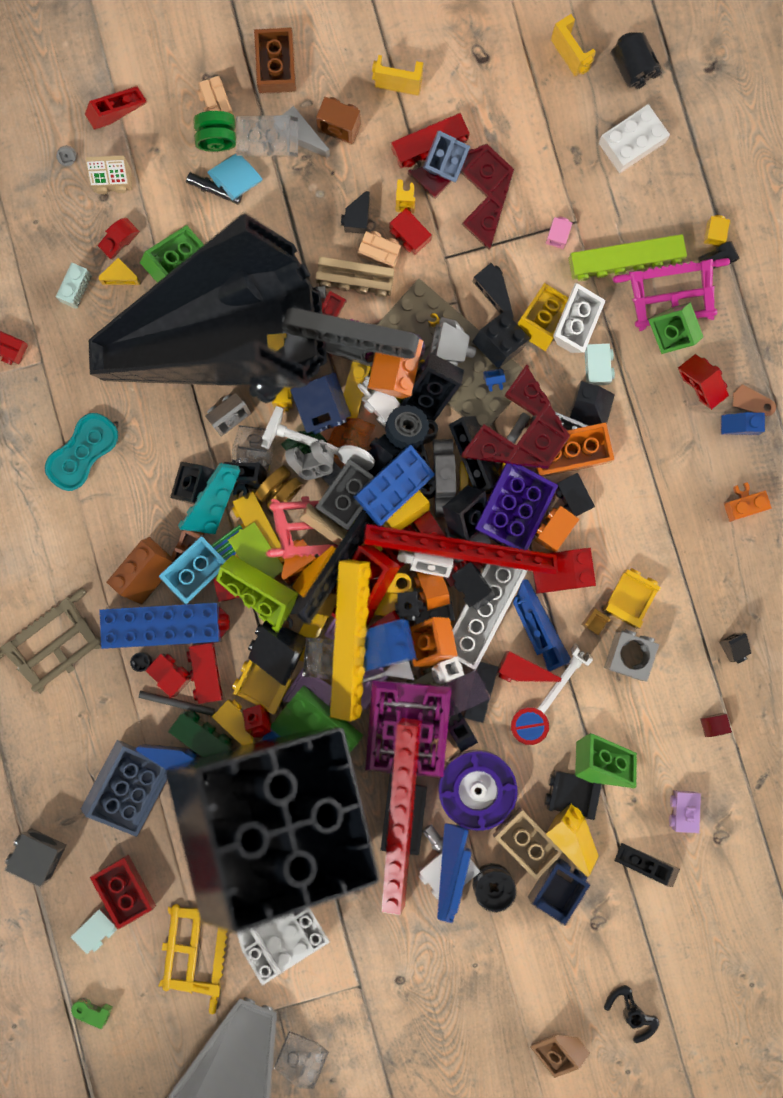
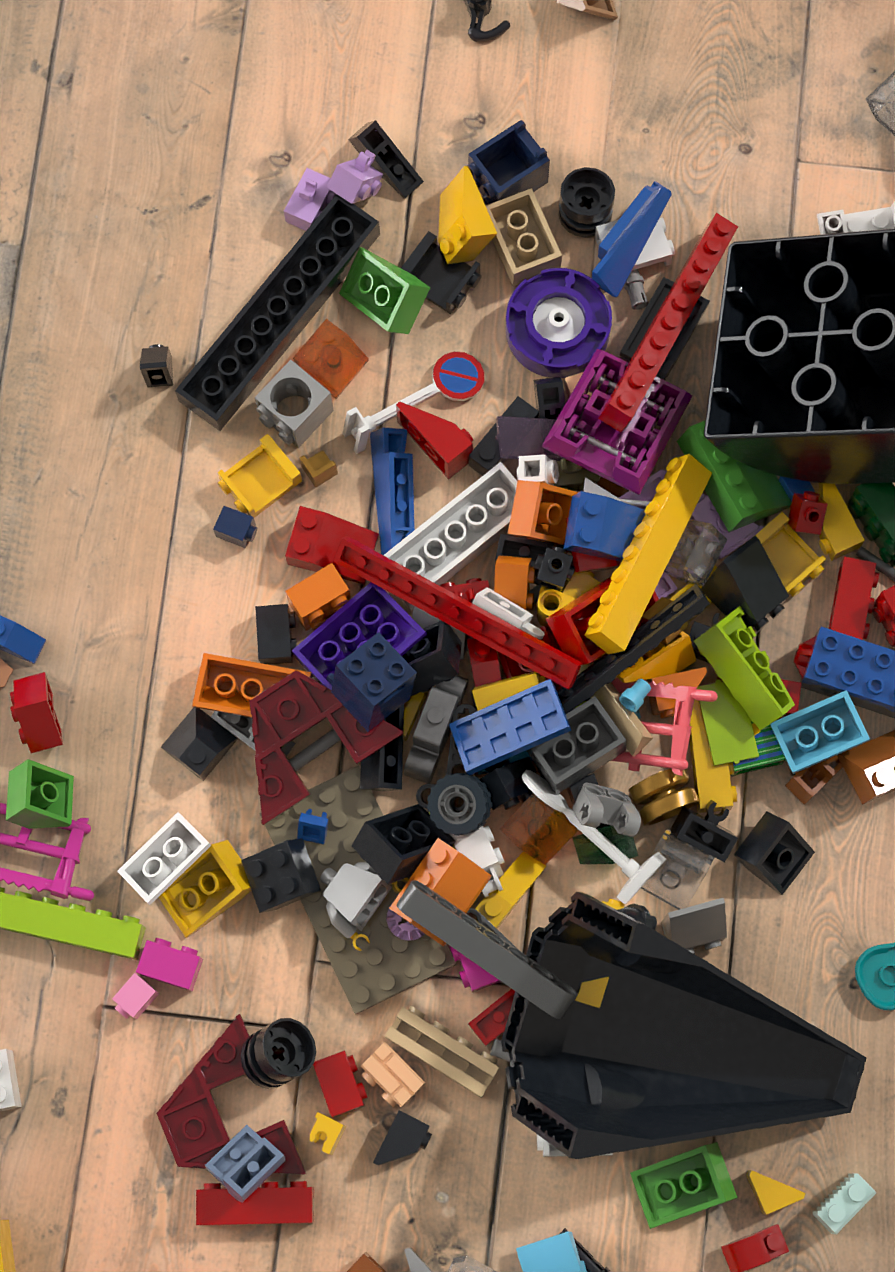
camera: 150 degrees left, 10 degrees down
(211, 503) = (761, 812): teal wing -> none
(319, 398) = (555, 875): dark blue container -> none
(322, 538) = (633, 697): none -> medium azure brick
(445, 230) = (278, 1053): none -> black wheel
(473, 585) = (459, 561): black brick -> none
(493, 287) = (257, 954): black slope -> none
(495, 473) = (372, 681): none -> dark blue container
(546, 260) = (169, 964): none -> dark pink brick
(598, 364) = (164, 792): light aqua brick -> none
(621, 700) = (331, 358): none -> clear orange slope
(632, 557) = (235, 527): none -> dark blue brick
(660, 837) = (356, 178): none -> lavender brick
(671, 719) = (277, 312): none -> black brick
(716, 725) = (225, 285): dark red brick -> none
(747, 504) = (57, 533): orange brick -> none

